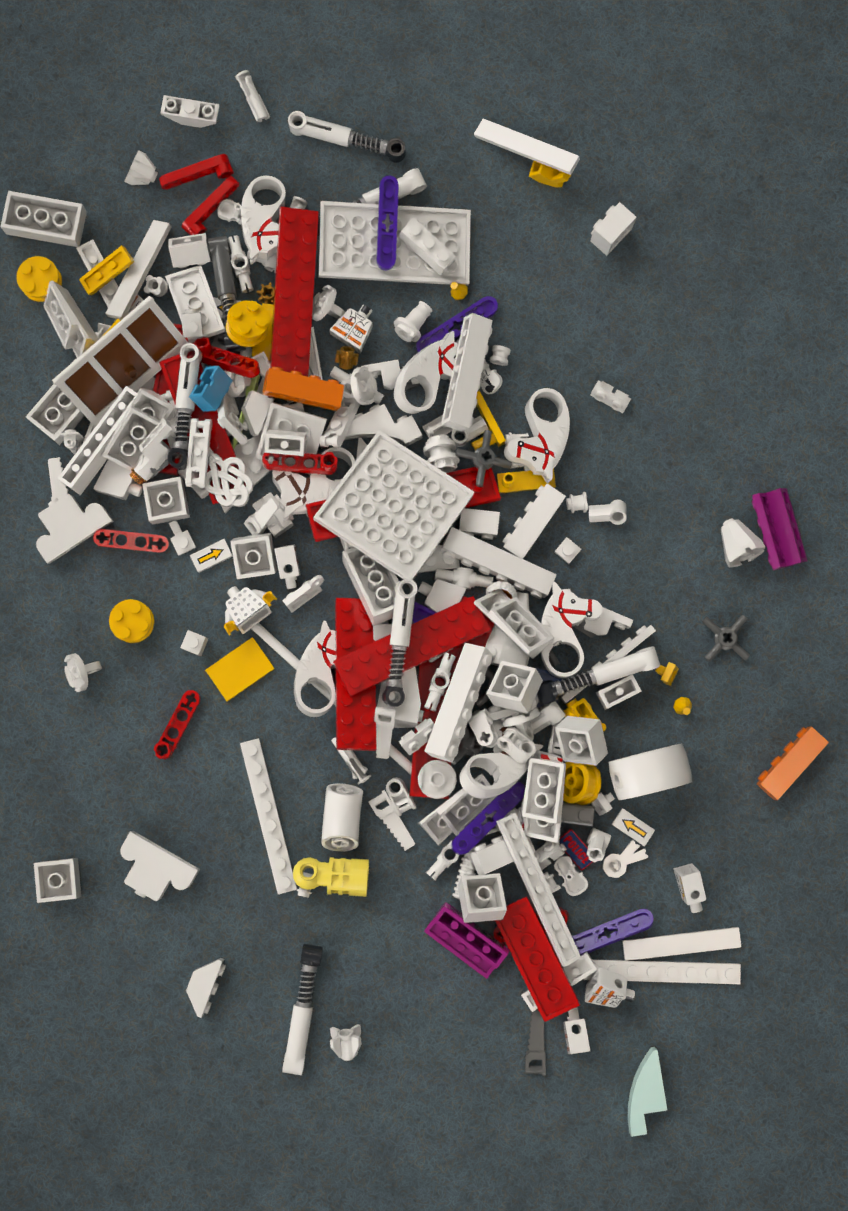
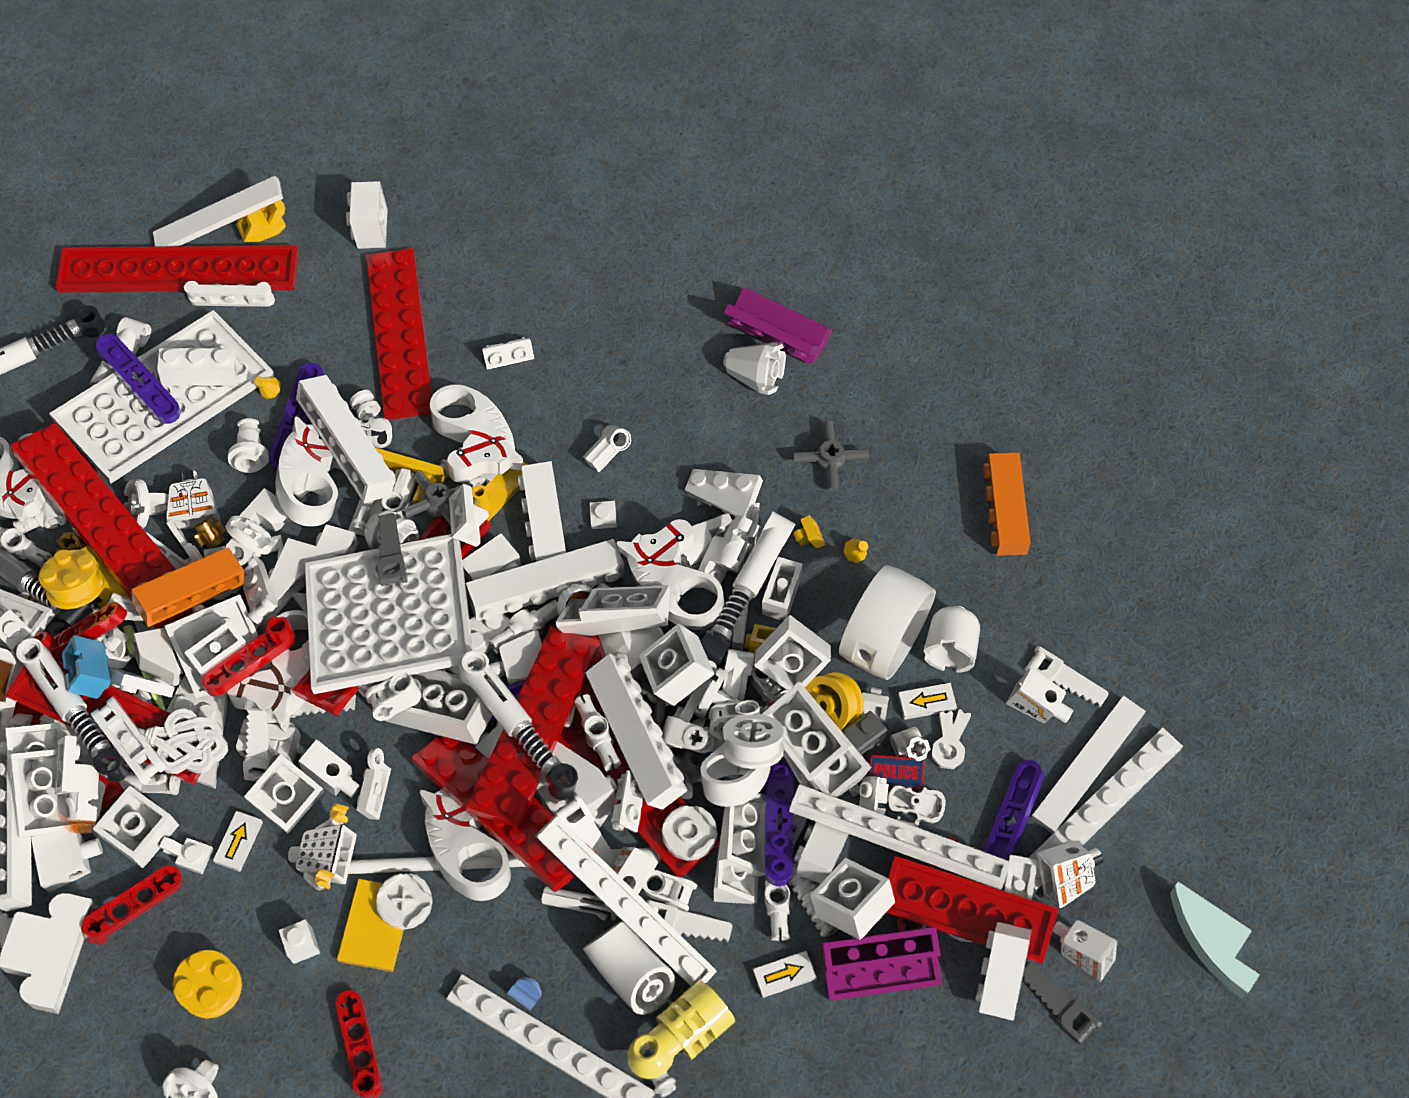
camera: 40 degrees left, 20 degrees down
(155, 382) = (20, 720): none -> white piece
(263, 672) = (404, 901): none -> white tile
(280, 778) = (526, 992): none -> medium blue plate
(327, 361) = (194, 554): none -> white piece
(349, 558) = (394, 694): none -> white piece
(366, 788) = (625, 902): none -> white plate
(383, 772) = (634, 867): none -> white torso
(415, 894) = (784, 974): none -> white tile
(428, 470) = (390, 552): none -> dark grey piece
(475, 159) = (172, 267): none -> red plate
(484, 202) = (229, 294): none -> white plate
(487, 486) = (466, 516): none -> white panel
(518, 779) = (753, 755): none -> white wheel
(521, 1006) = (1003, 970): none -> white brick
(562, 324) = (399, 334): none -> red plate
(577, 503) = (569, 464): white brick -> none
(608, 643) = (731, 550): none -> white plate
(645, 604) = (726, 490): none -> white wing
(680, 809) = (952, 639): none -> white cylinder
(720, 886) = (1067, 677): none -> white piece

